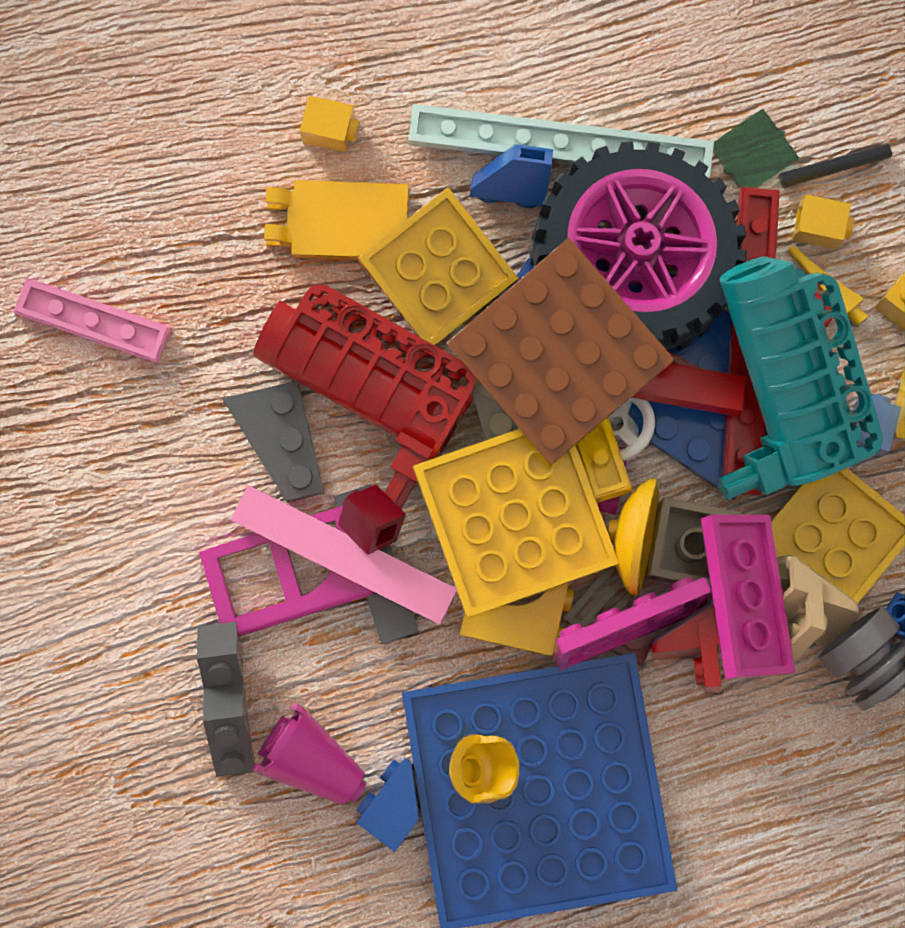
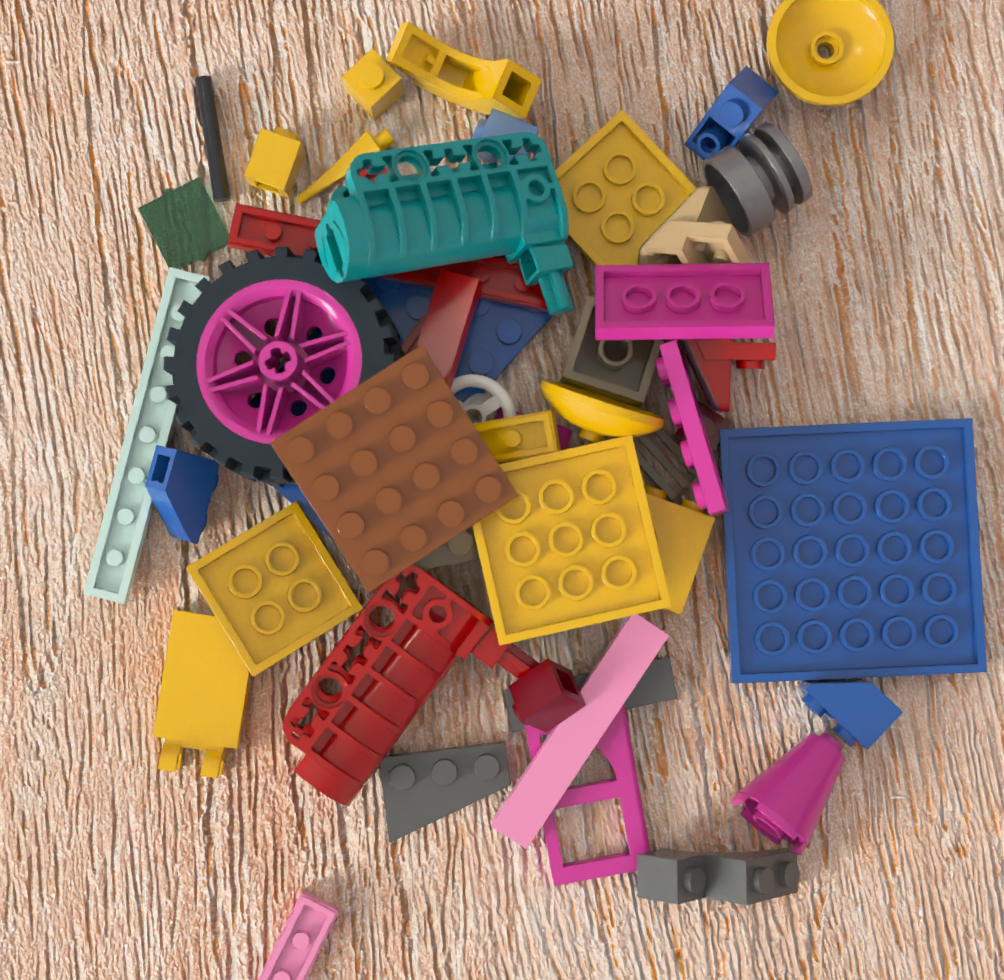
camera: 85 degrees left, 5 degrees up
(329, 124) = (93, 690): yellow brick -> none
(484, 768) = (831, 606): yellow helmet -> none

